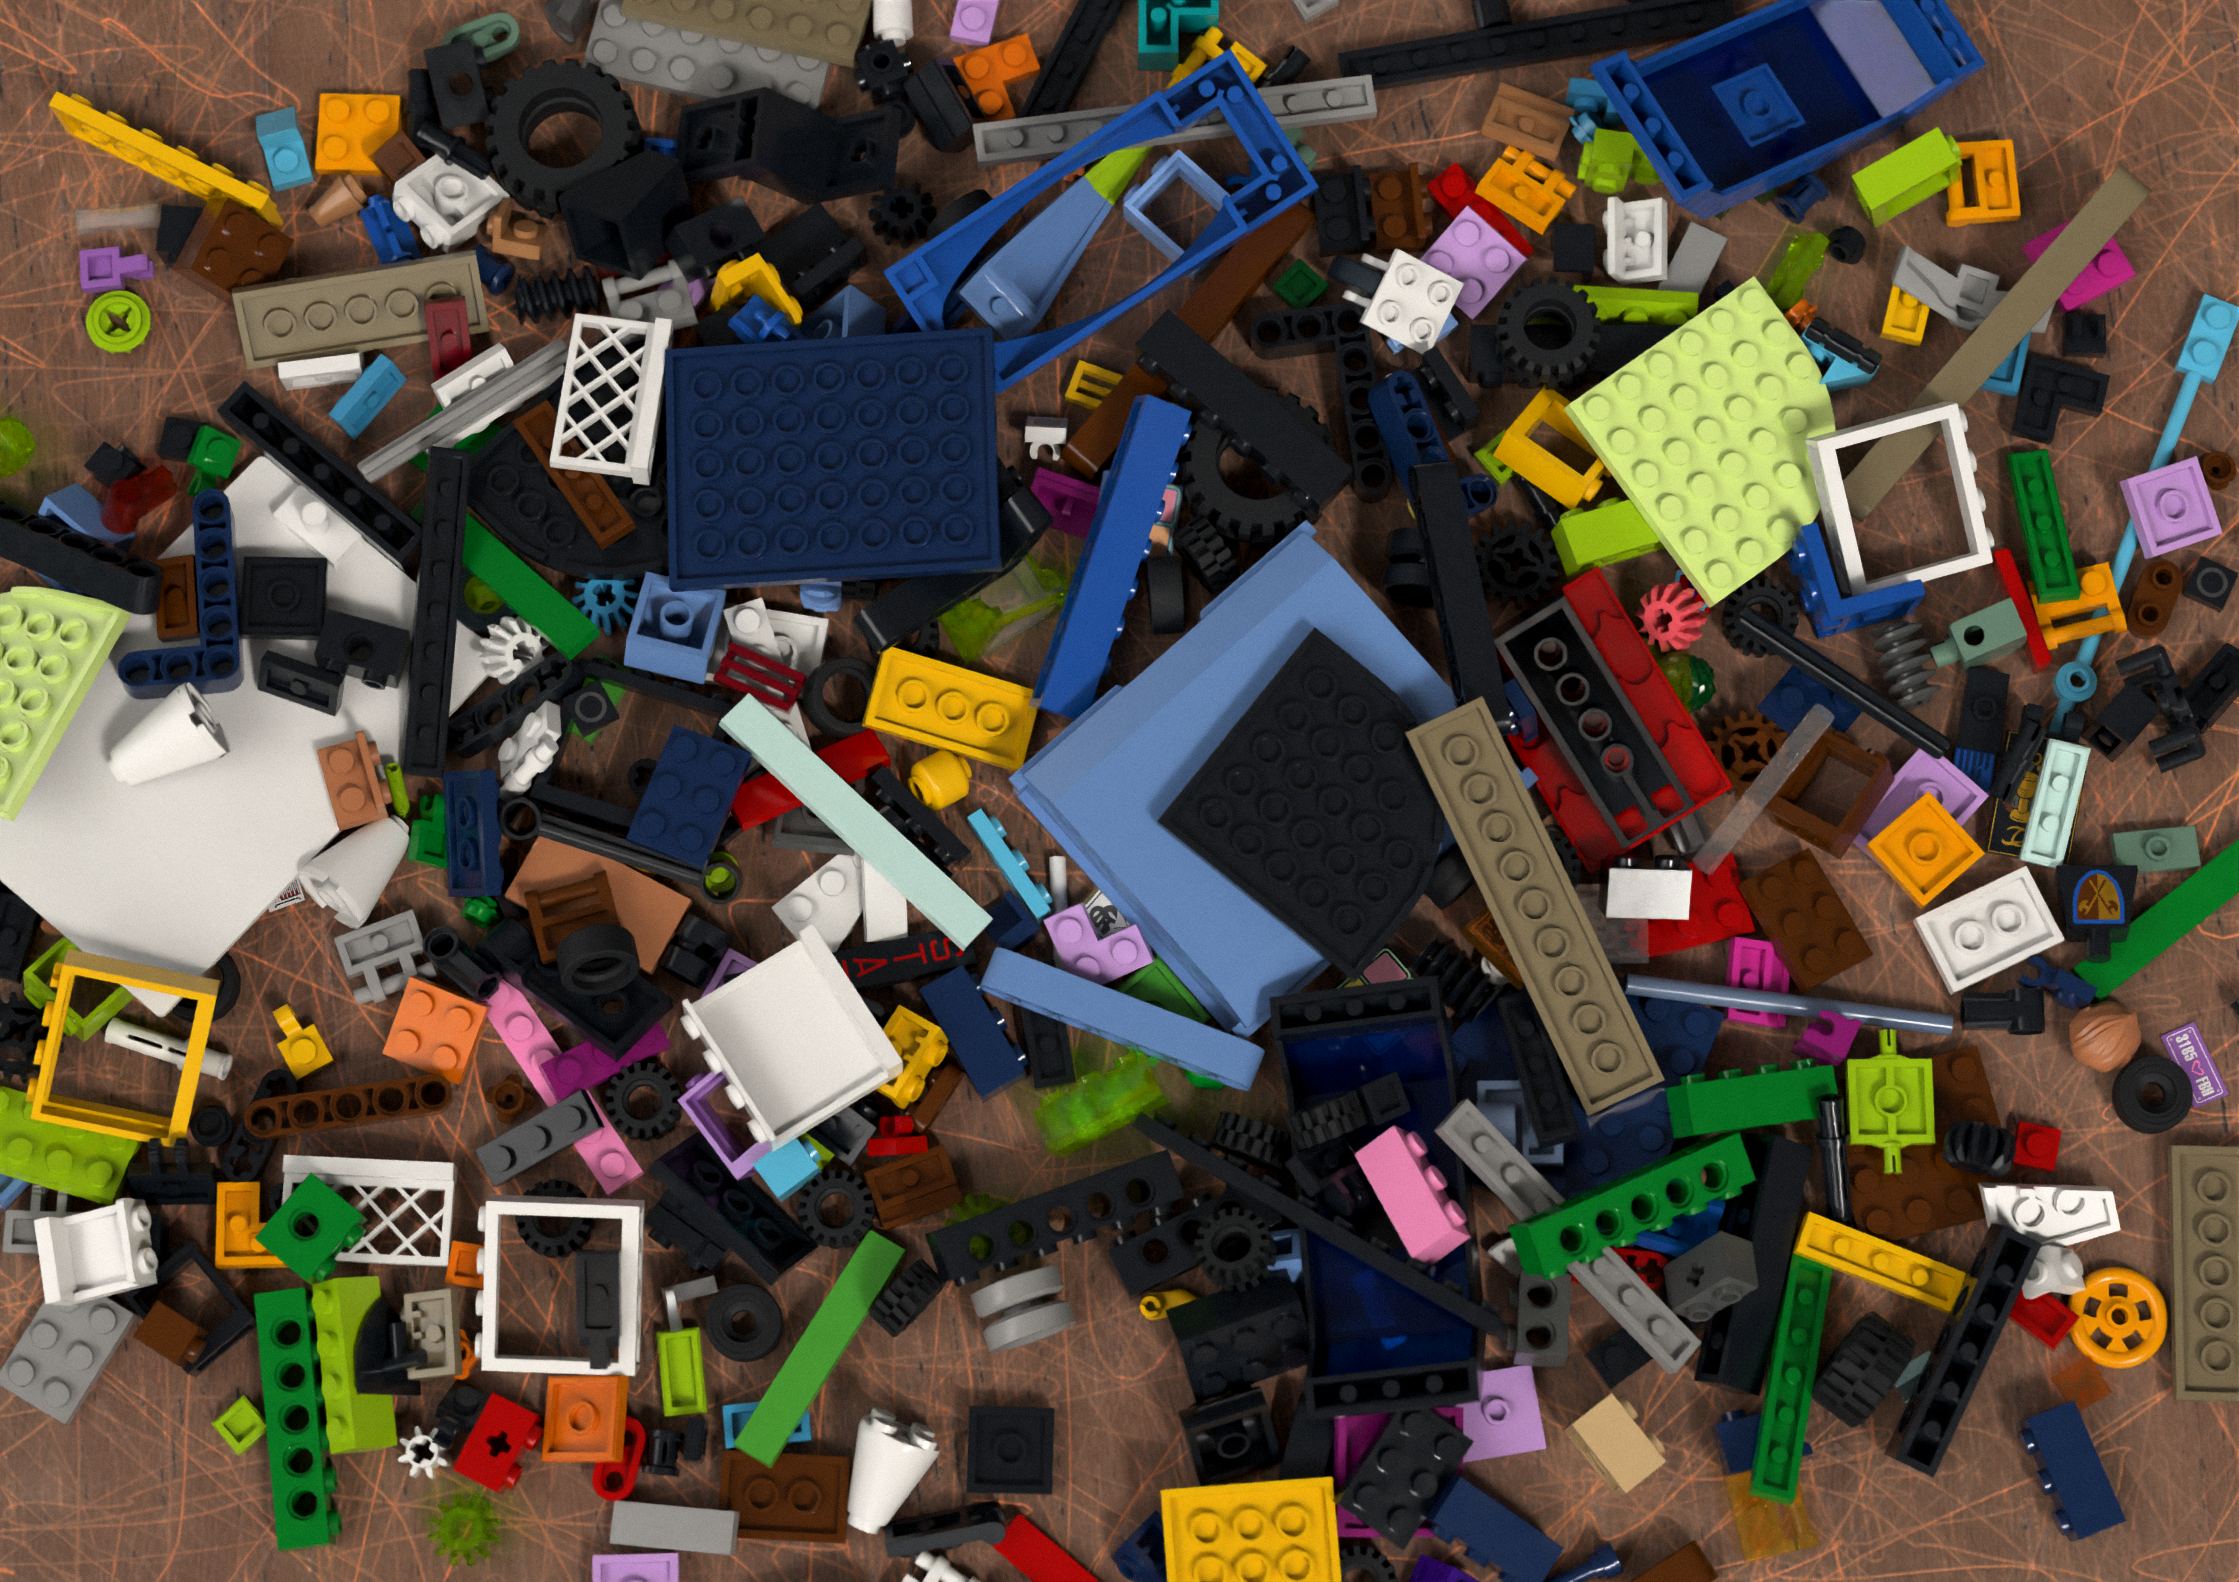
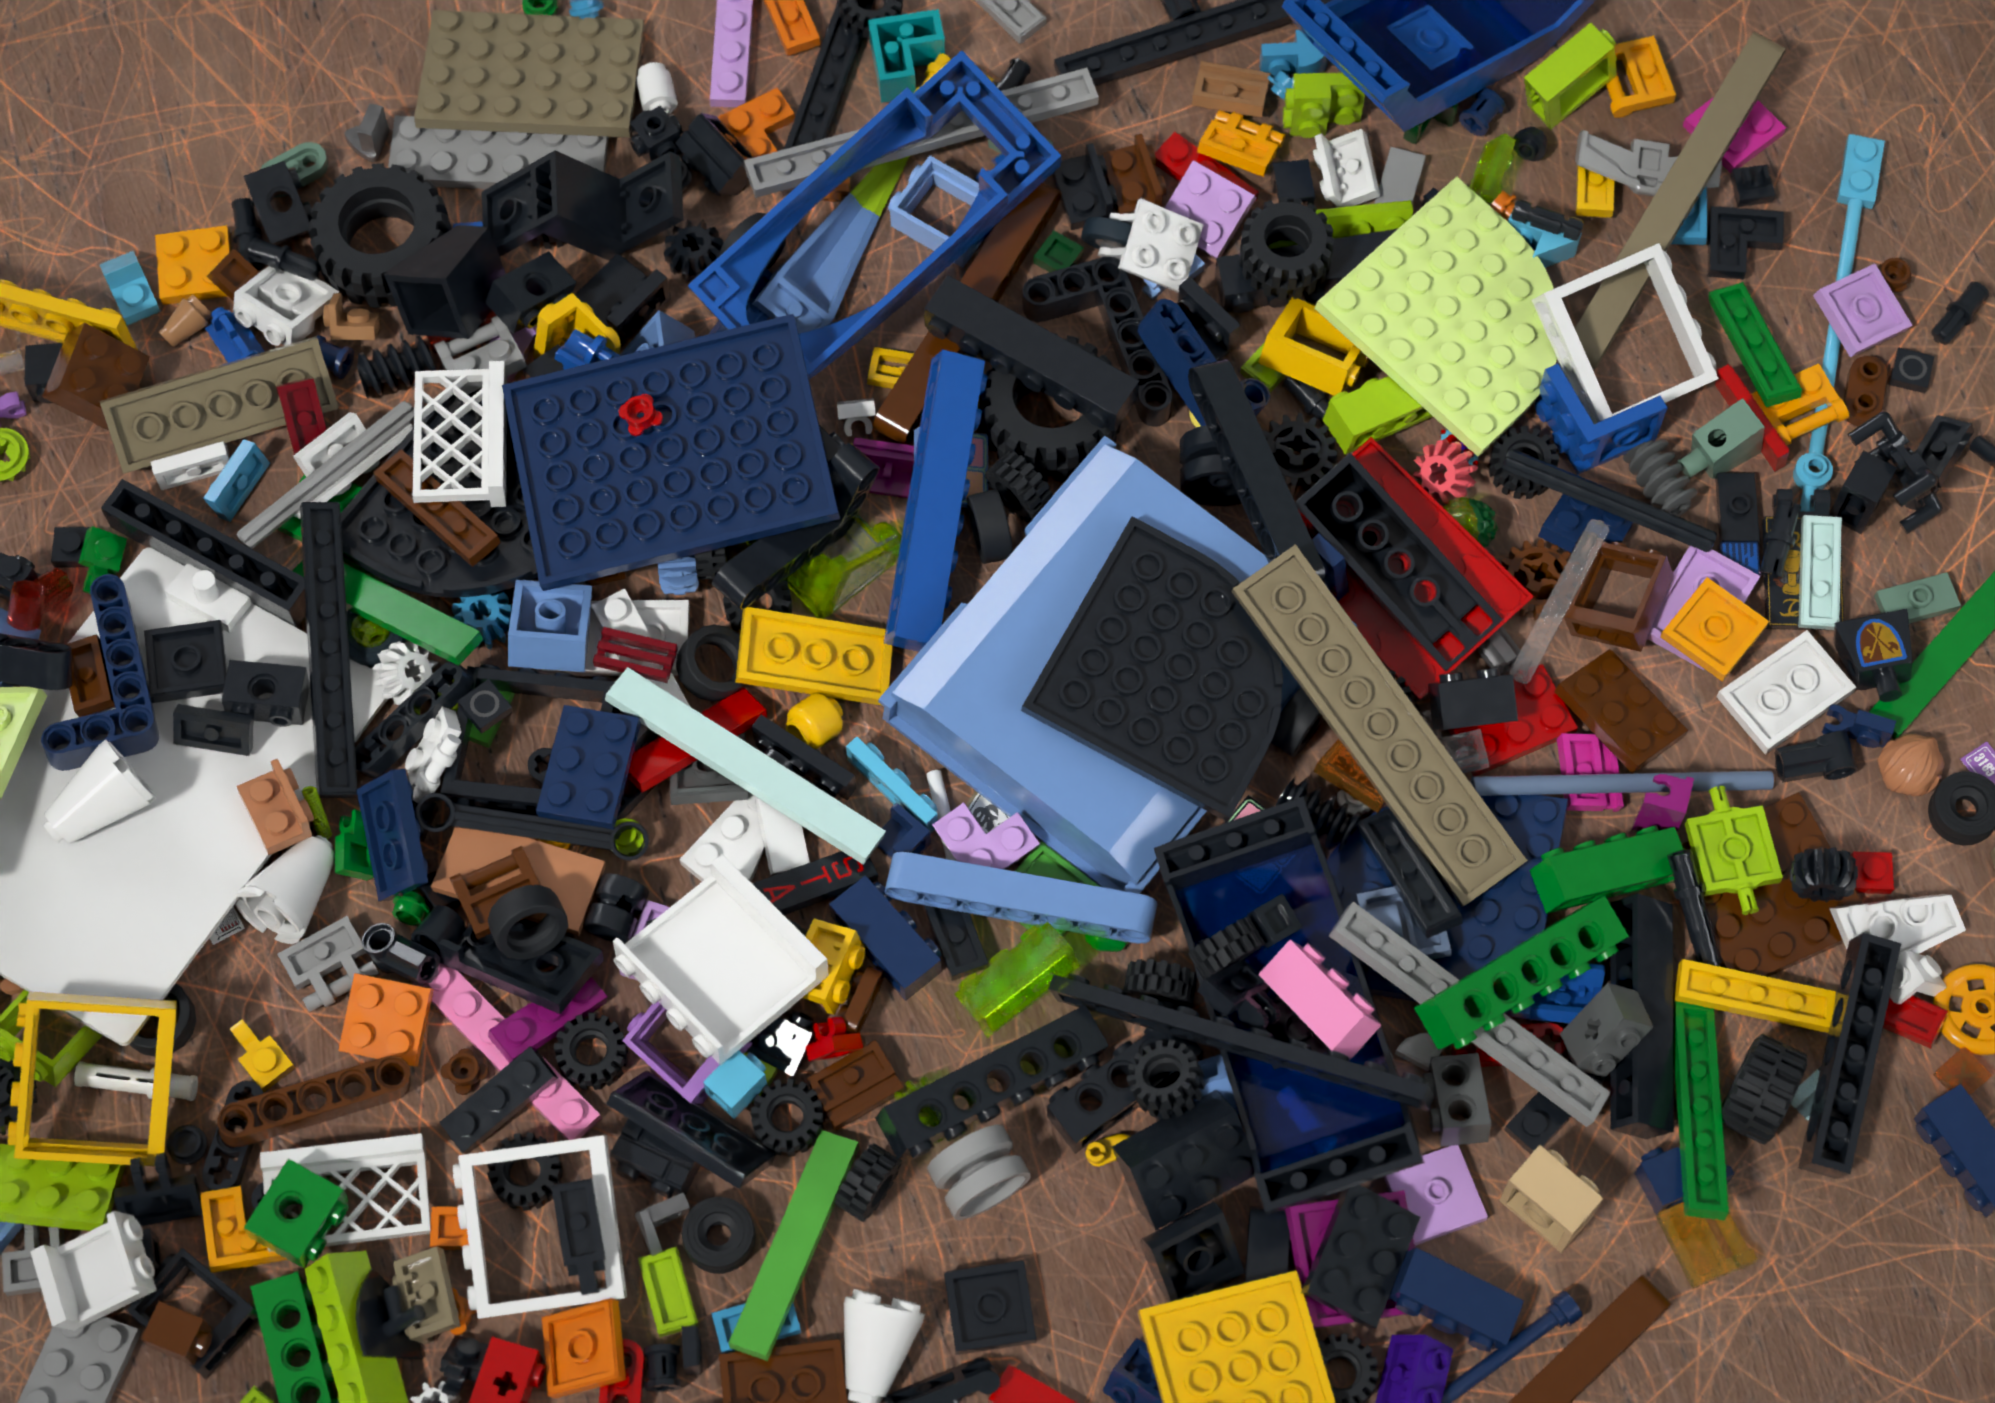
camera: 10 degrees left, 10 degrees down
(798, 407) = (636, 405): none -> red plate

